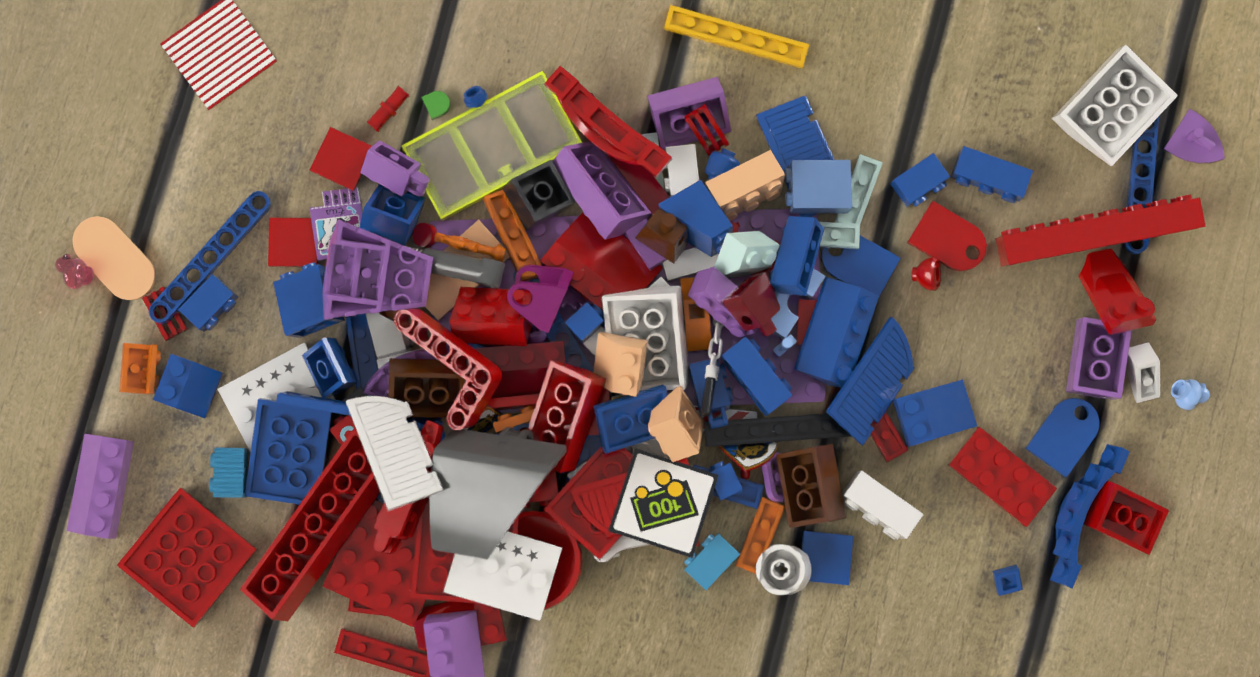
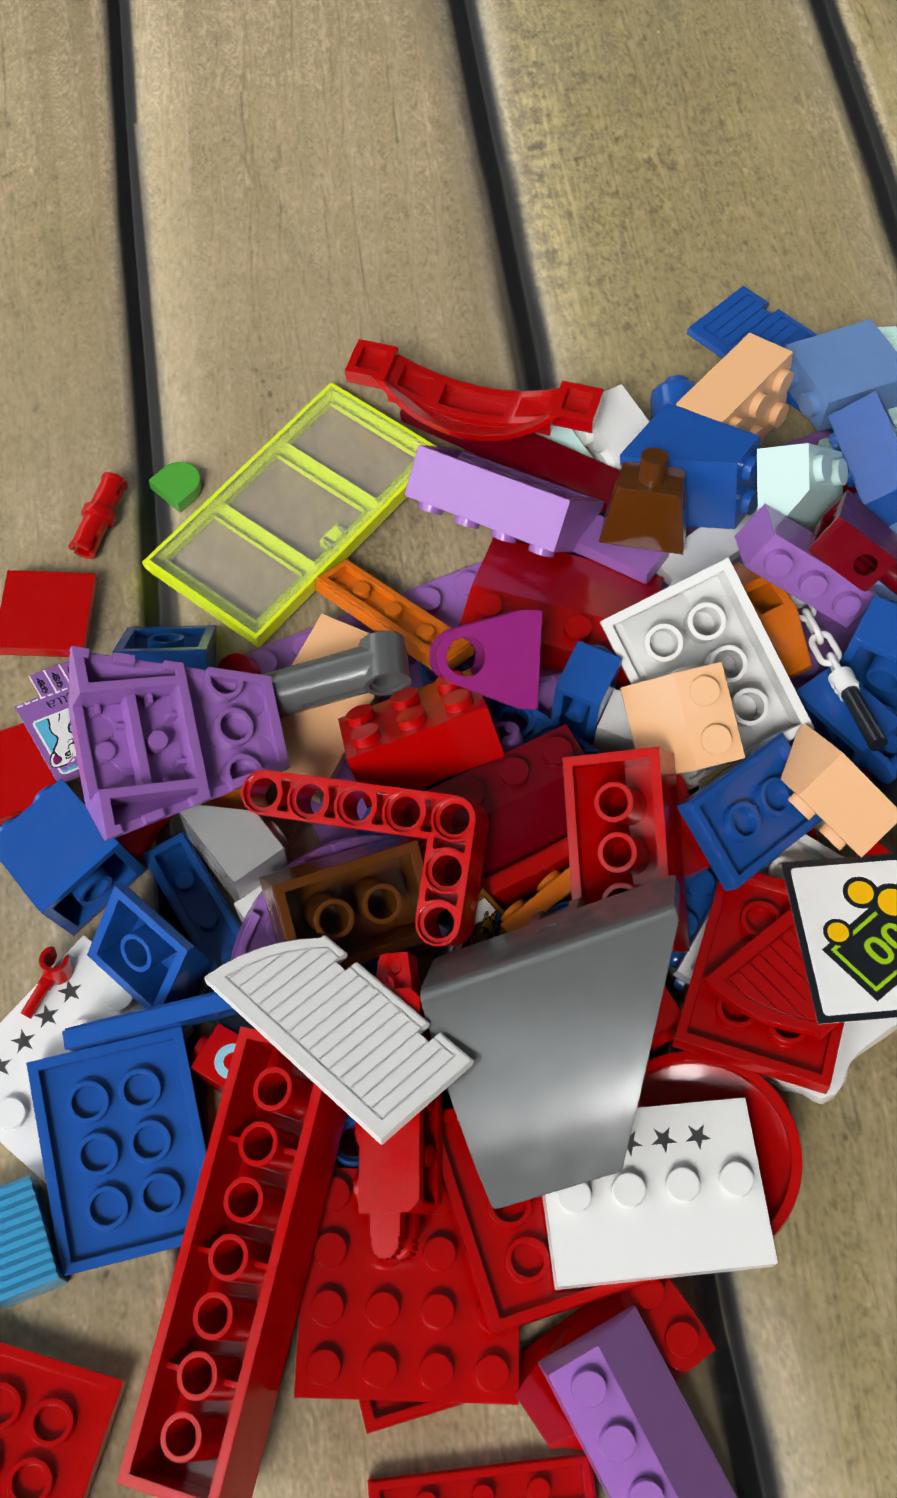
camera: 25 degrees left, 20 degrees down
(279, 360) = (50, 977): none -> red hand
(394, 170) = (143, 593): medium lavender brick -> none
(475, 97) = (237, 450): blue plate -> none
(496, 253) = (303, 650): orange piece -> none
(538, 194) = (407, 538): black brick -> none
(672, 105) = (593, 348): medium lavender slope -> none
(716, 145) = (637, 351): red tile -> none
(736, 36) = (601, 249): yellow tile -> none

